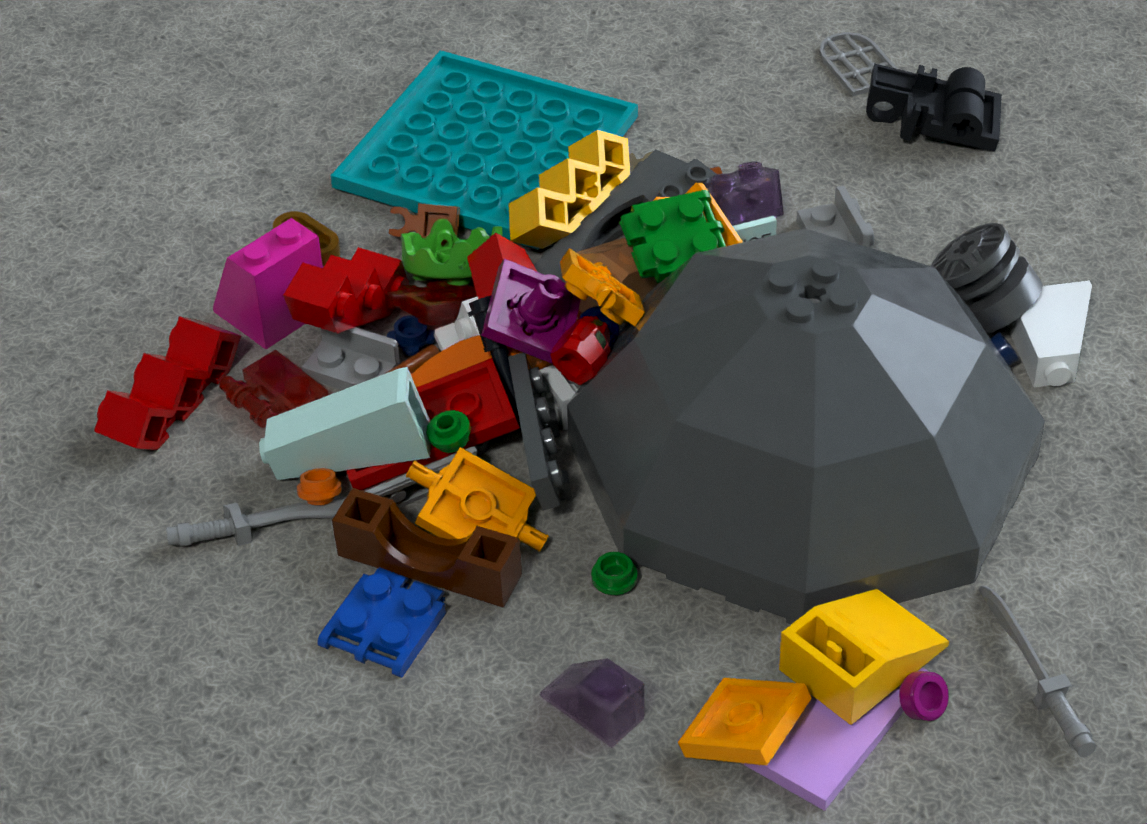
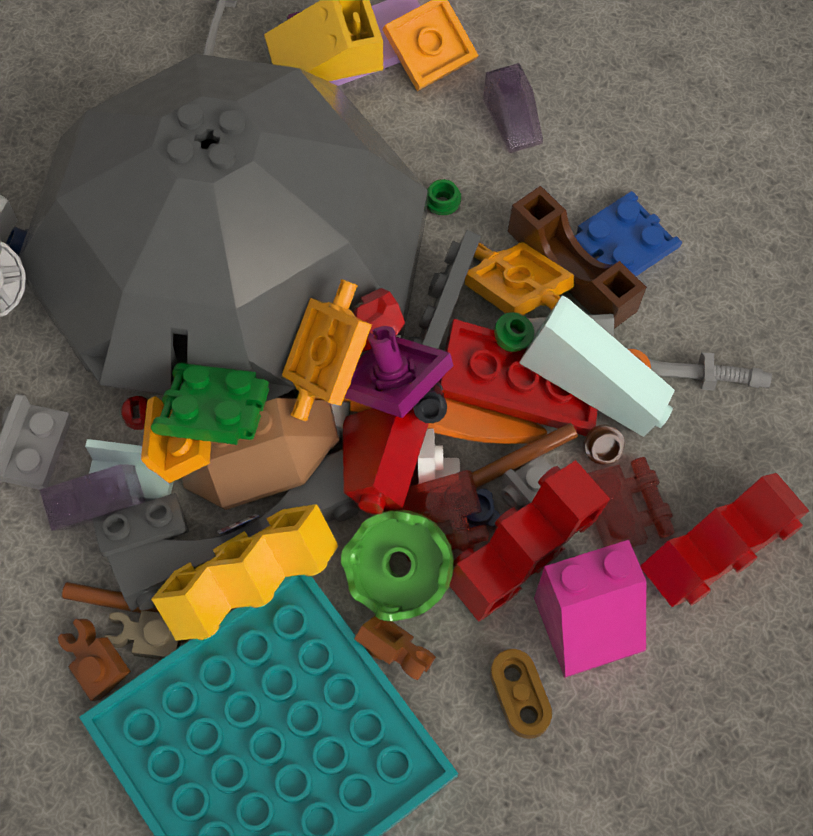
camera: 155 degrees left, 20 degrees up
(604, 221) = (237, 523): none -> sticker
(651, 135) = (97, 662): none -> dark orange plate

